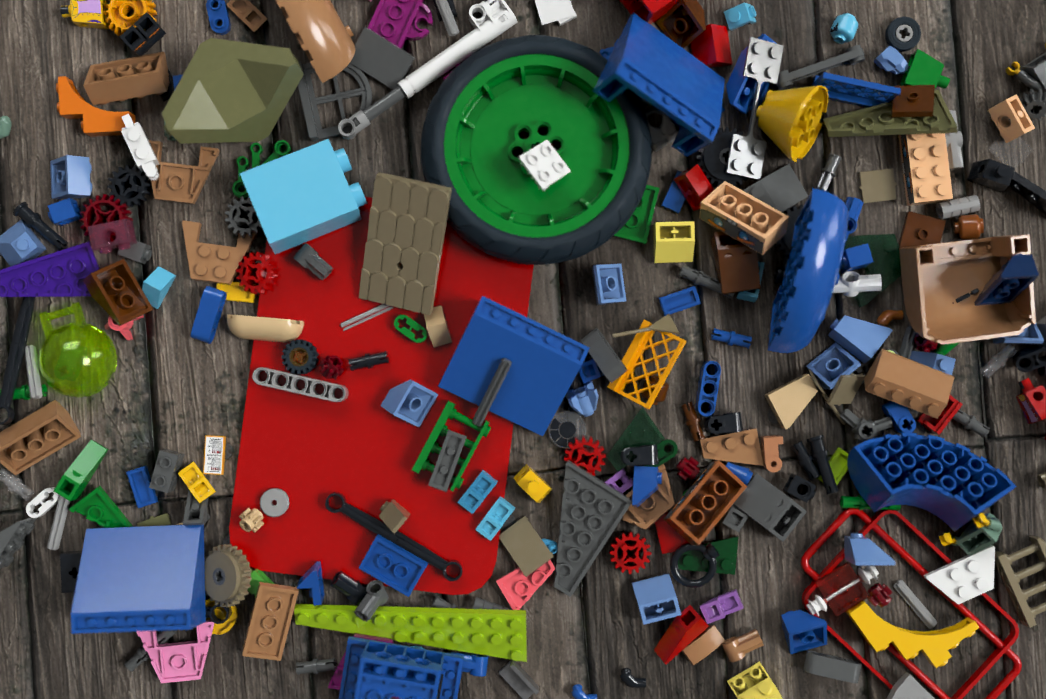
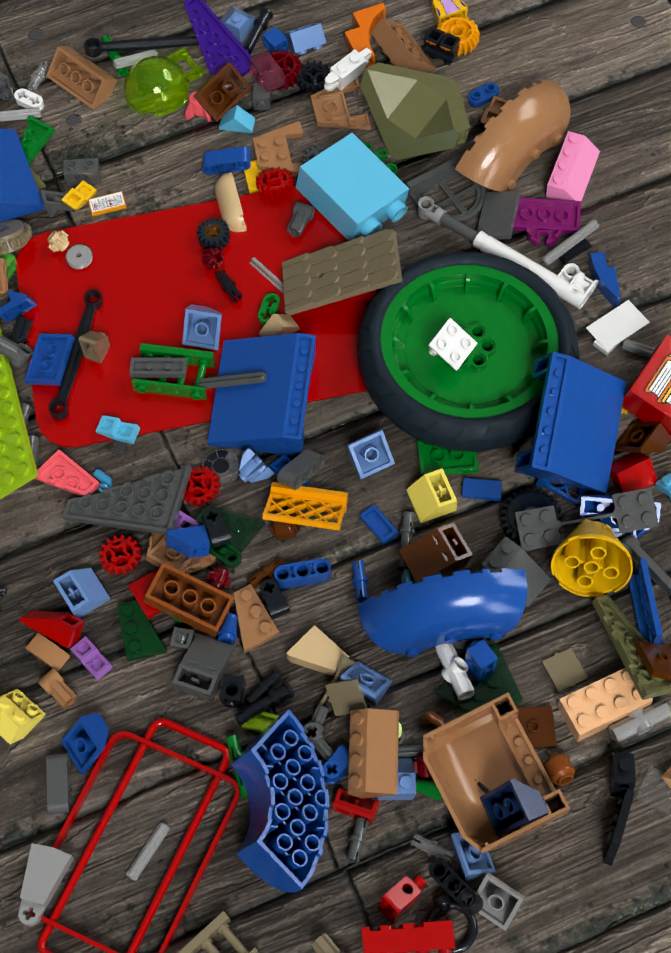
camera: 80 degrees right, 25 degrees down
(81, 471) = (62, 114): slope -> none
(140, 483) = (56, 165): blue tile -> none
(291, 384) = (188, 233): light grey beam -> none
(477, 491) = (138, 408): dark azure slope -> none
(525, 546) = (99, 464): dark tan piece -> none
(532, 483) = (159, 447): yellow torso -> none
(664, 325) = (348, 510): dark tan piece -> none
(694, 186) = (492, 498): red hinge -> none
(708, 551) = (140, 623): black piece -> none
(743, 217) = (477, 536): light nougat brick -> none
(770, 452) = (258, 652): nougat leg -> none
(828, 172) = (557, 616): dark grey axle -> none
(842, 589) = (141, 760): clear red plate -> none
(854, 208) = (523, 648): blue piece -> none
(859, 336) = (406, 696): medium blue slope -> none
(863, 551) = (187, 764): medium blue slope -> none
(879, 595) = (146, 797): dark red gear -> none
(907, 642) = (104, 842): yellow arch -> none
(958, 207) = (575, 752): light grey axle -> none
(966, 576) = (192, 886): white wing -> none
(977, 536) = (240, 878): sand green torso -> none

